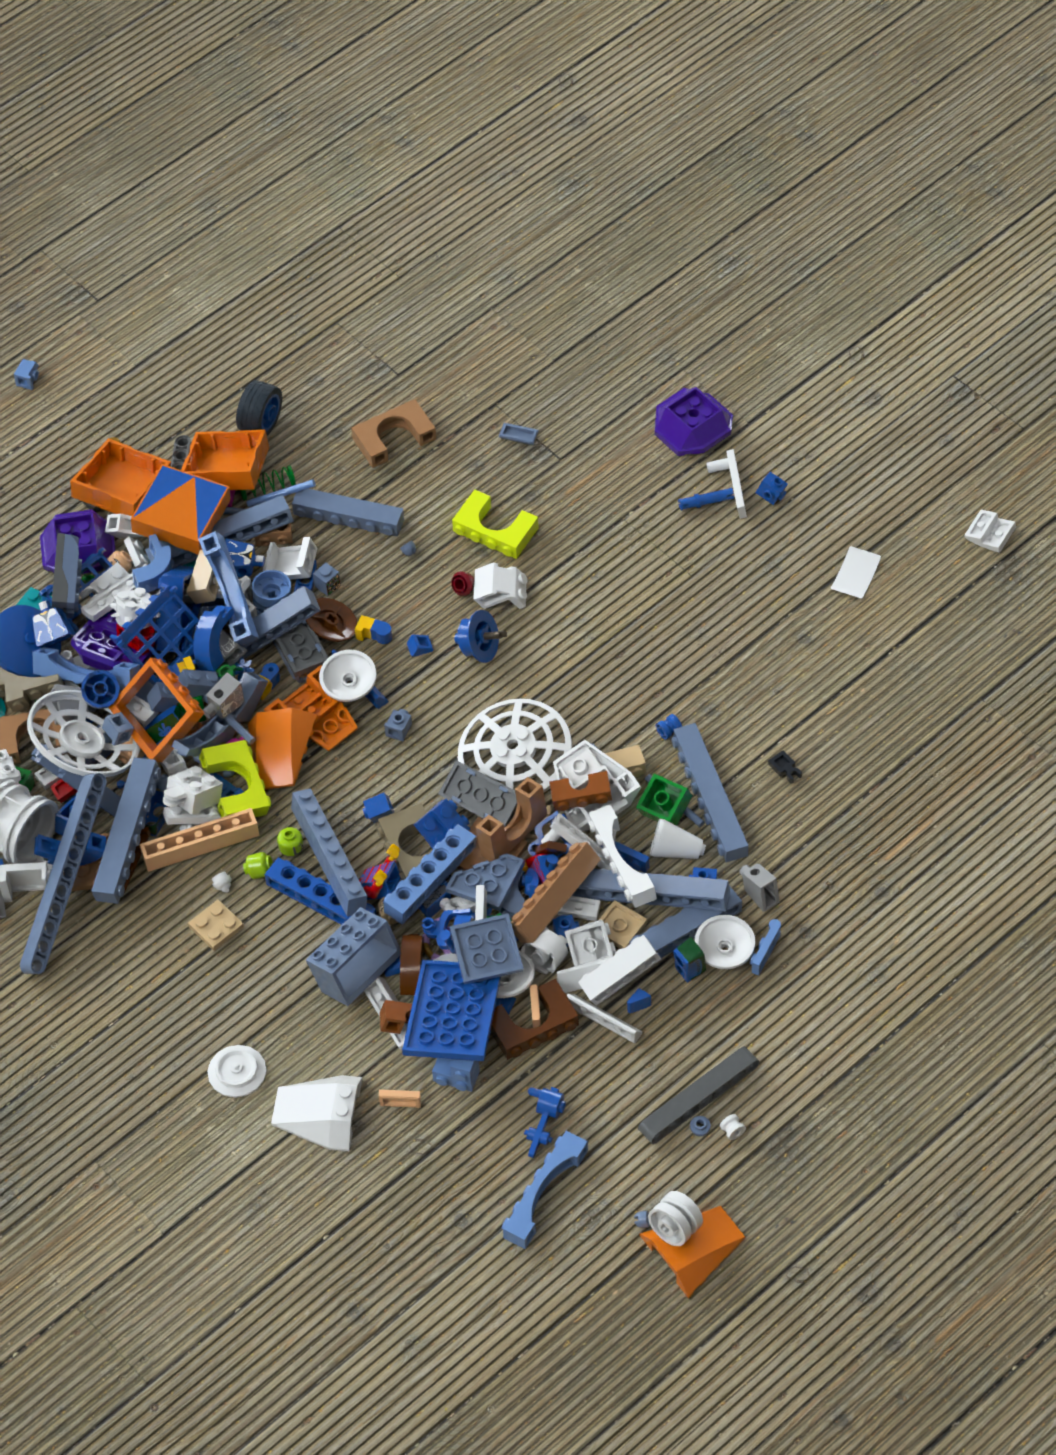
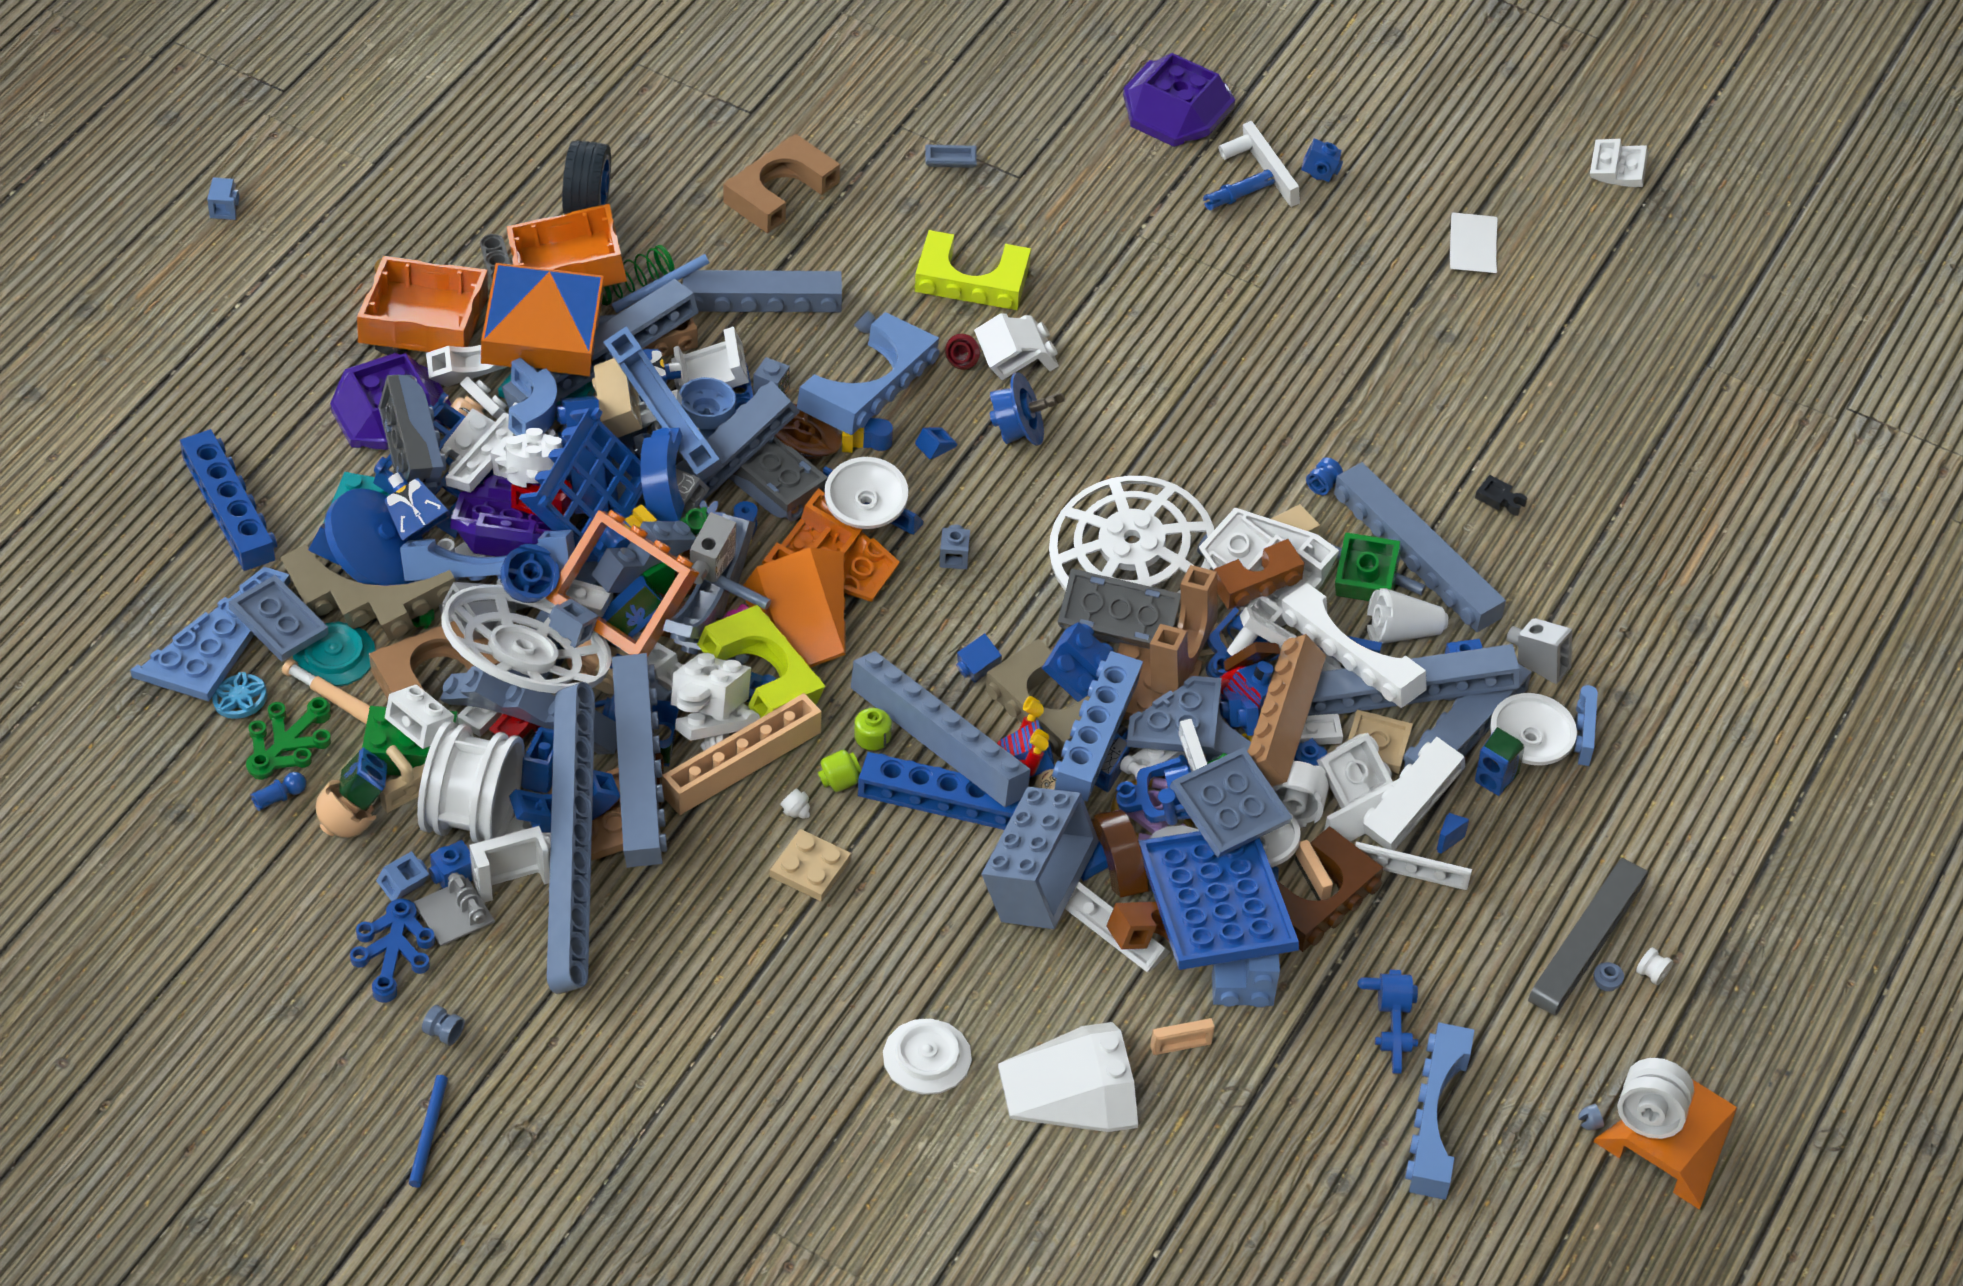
camera: 25 degrees left, 5 degrees down
(367, 609) = (853, 404): none -> medium blue arch

